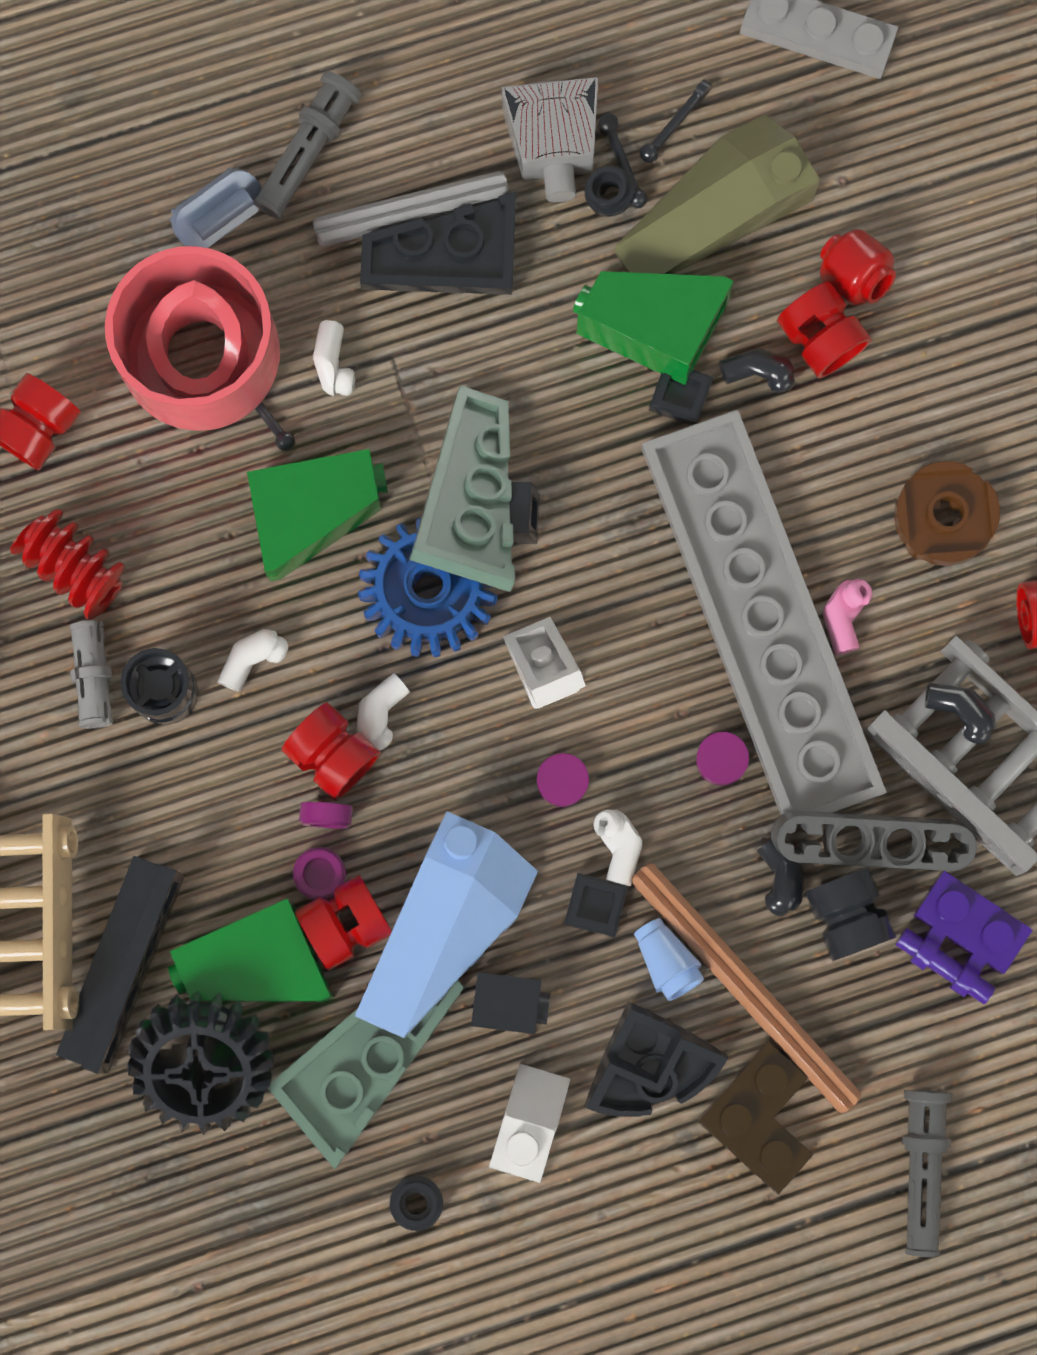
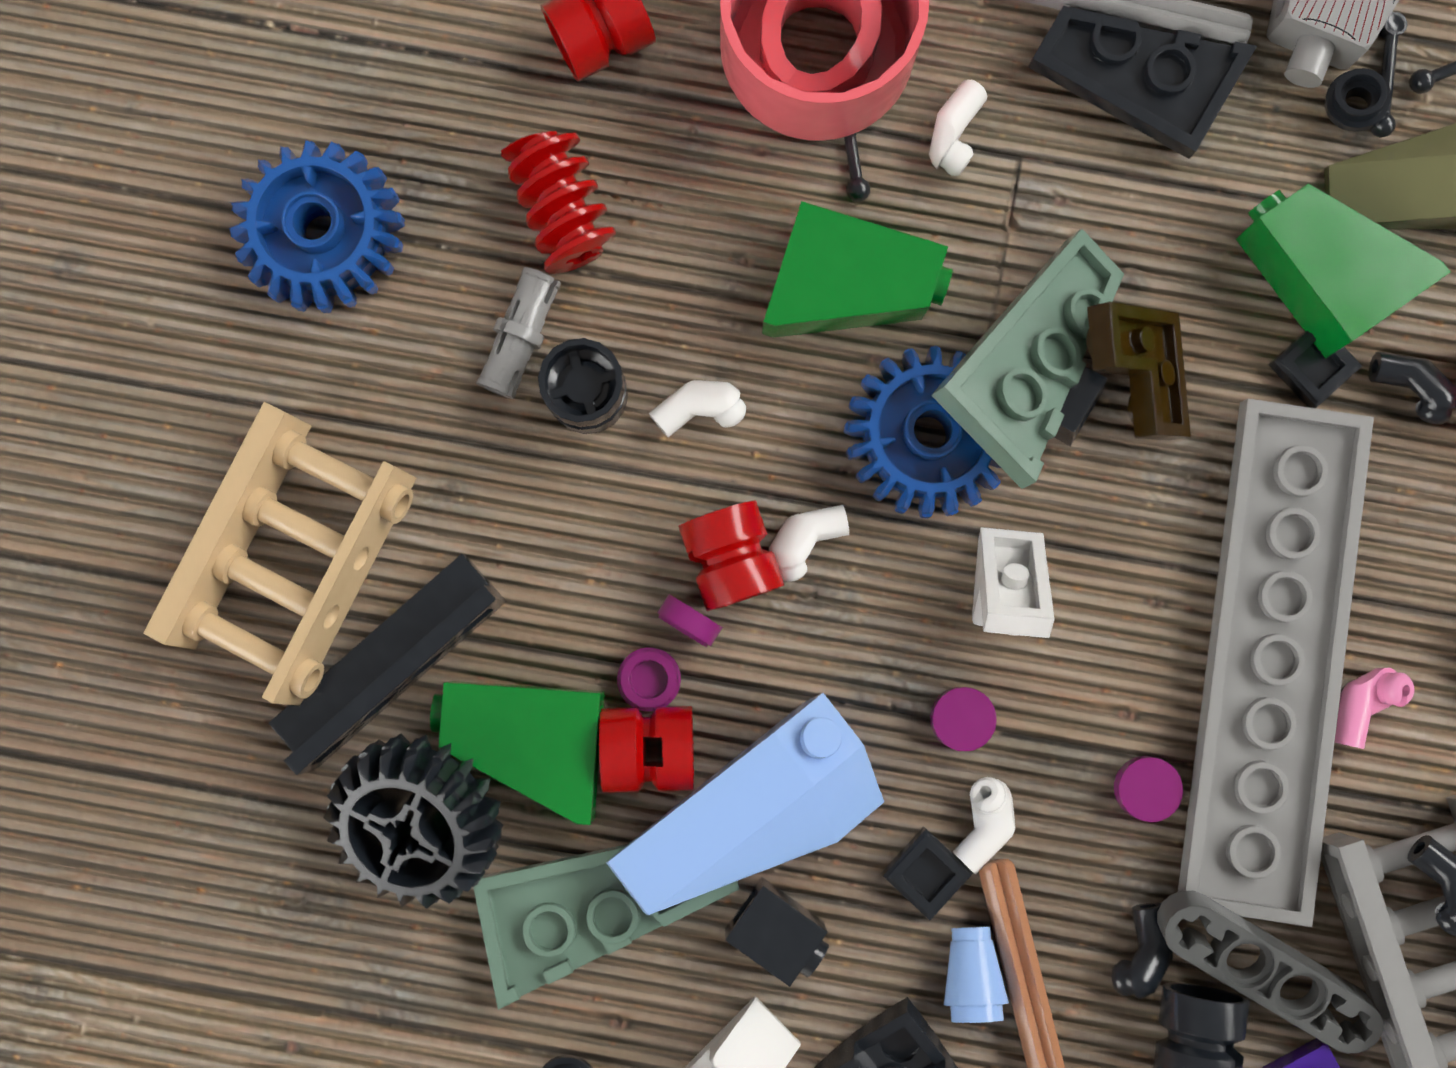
camera: 25 degrees right, 5 degrees up
(556, 447) = (1149, 350): none -> dark brown plate

